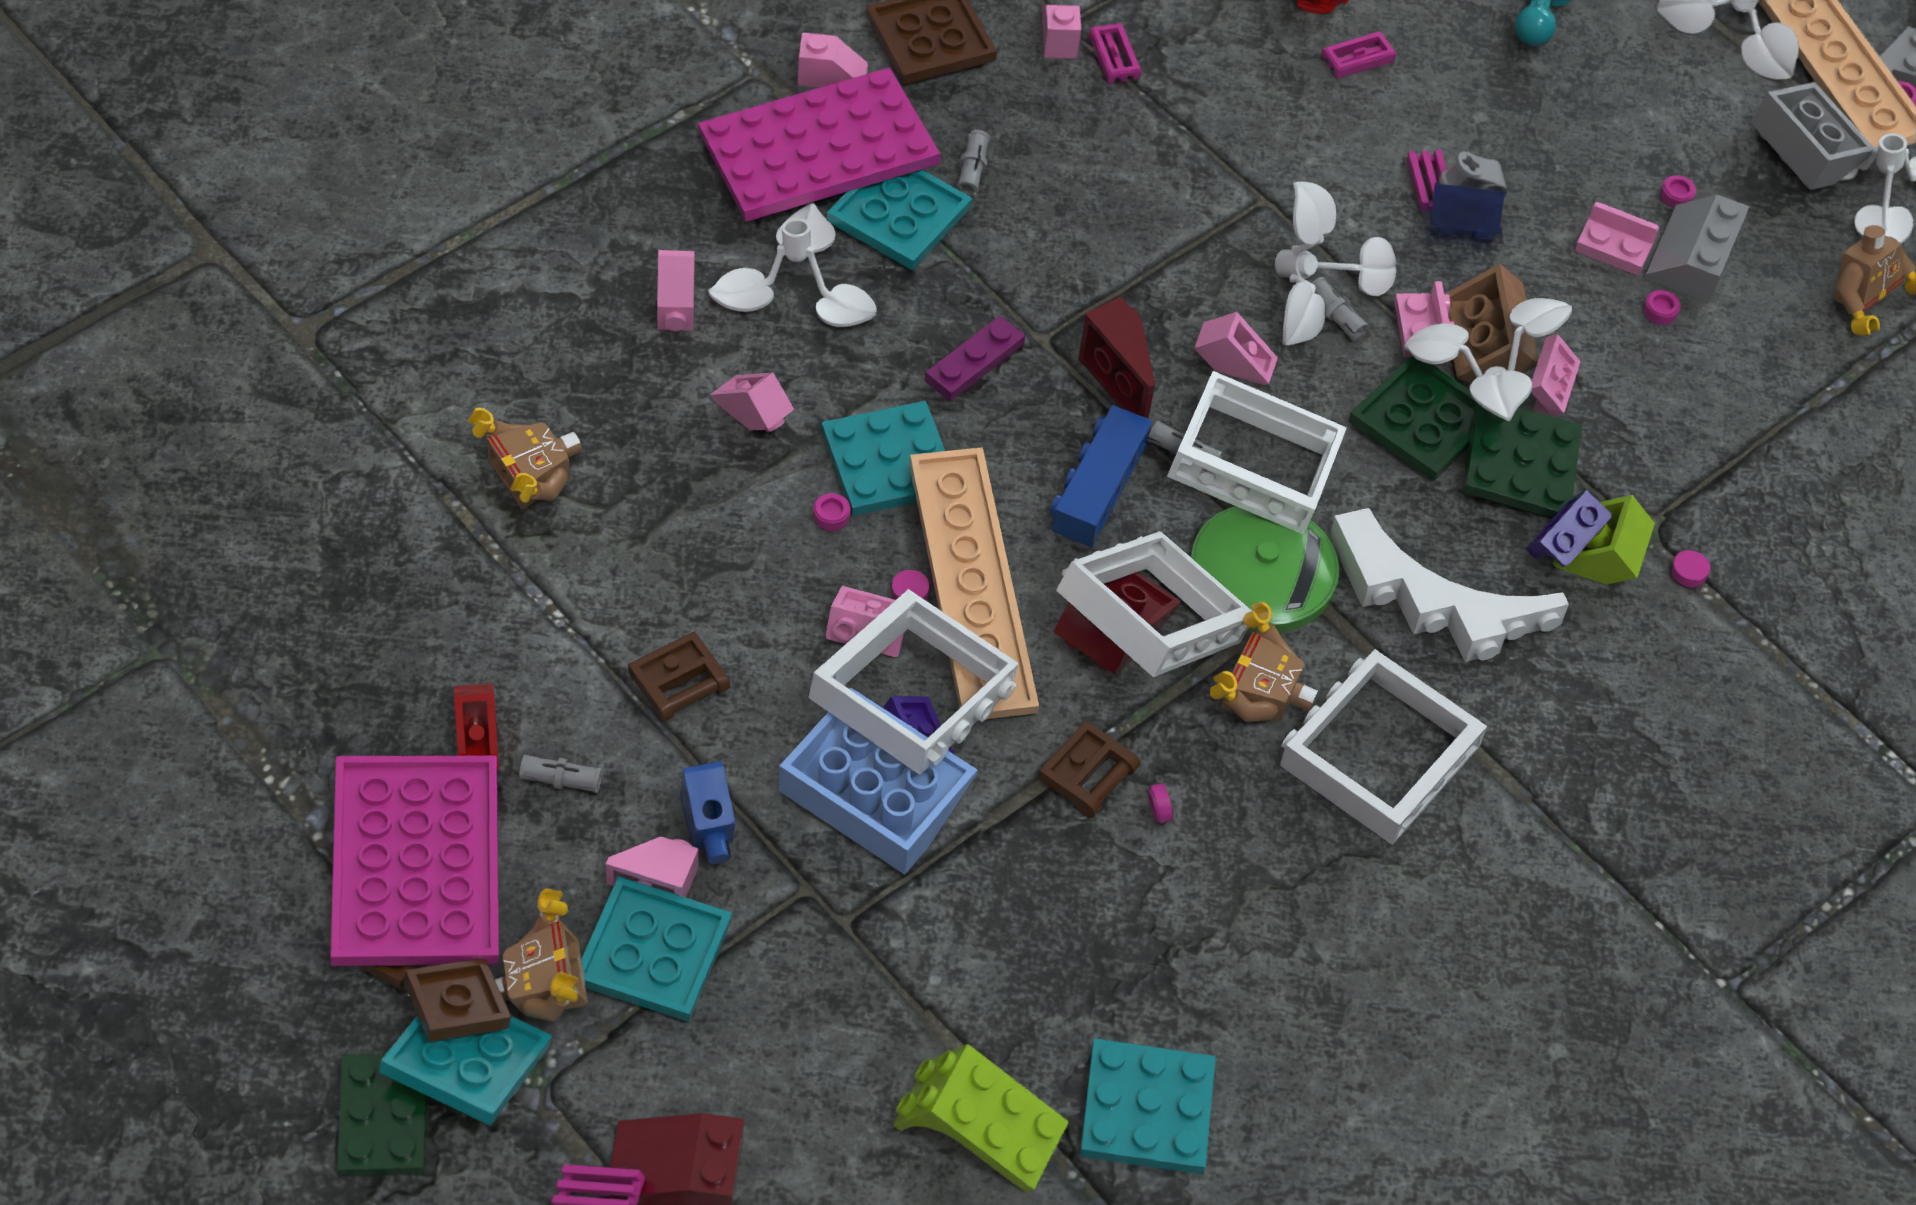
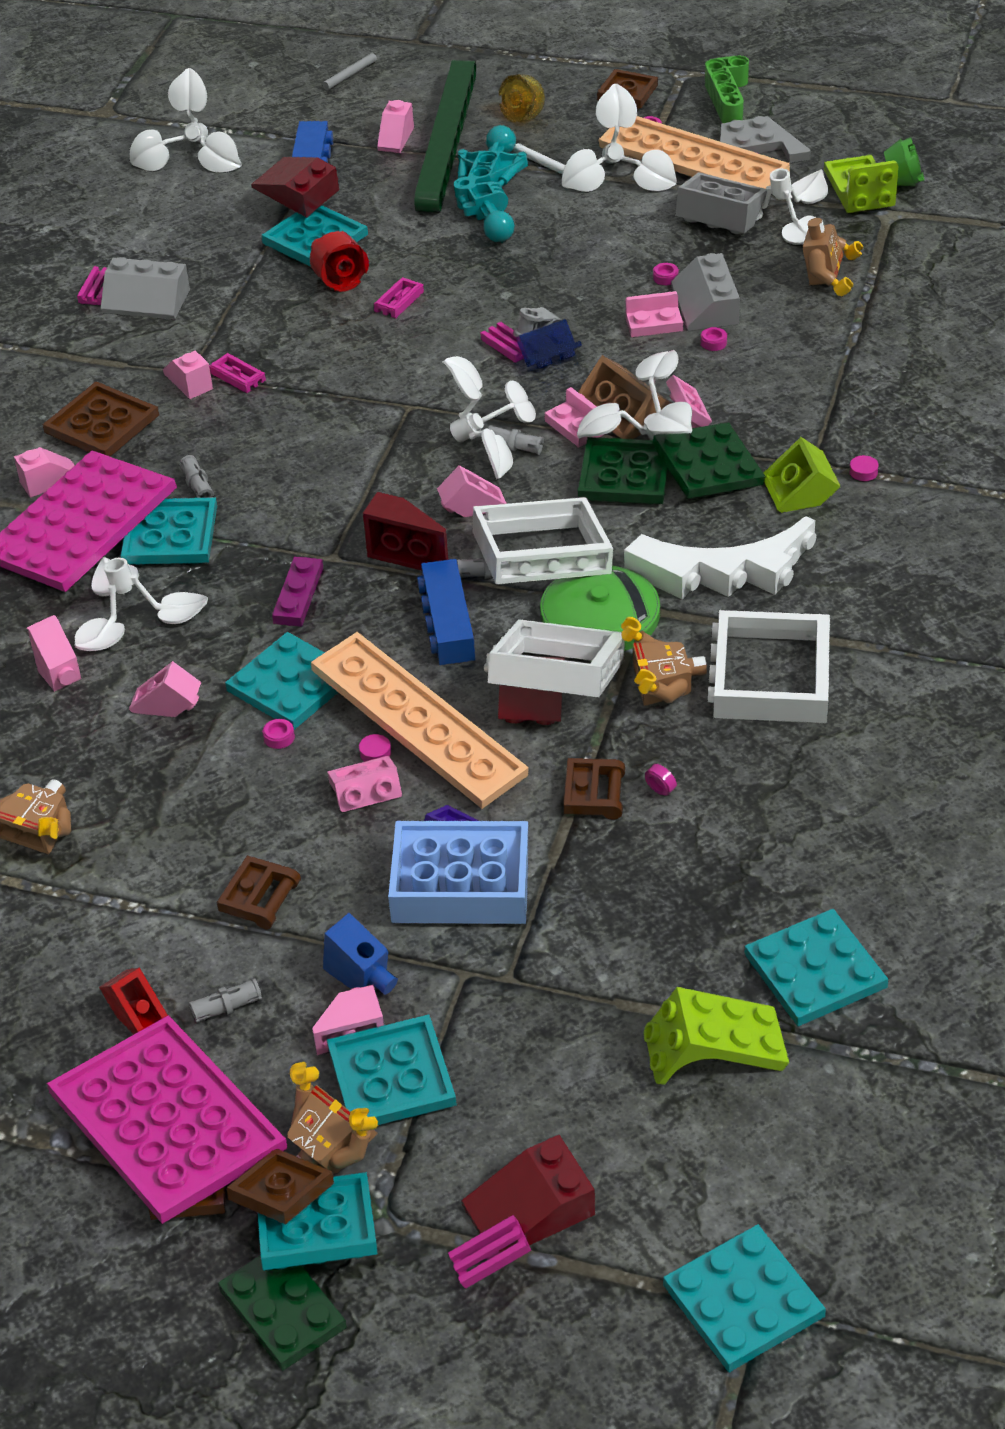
camera: 25 degrees left, 10 degrees down
(944, 634) = (446, 754): white window -> none
(1570, 529) = (776, 479): bracket -> none

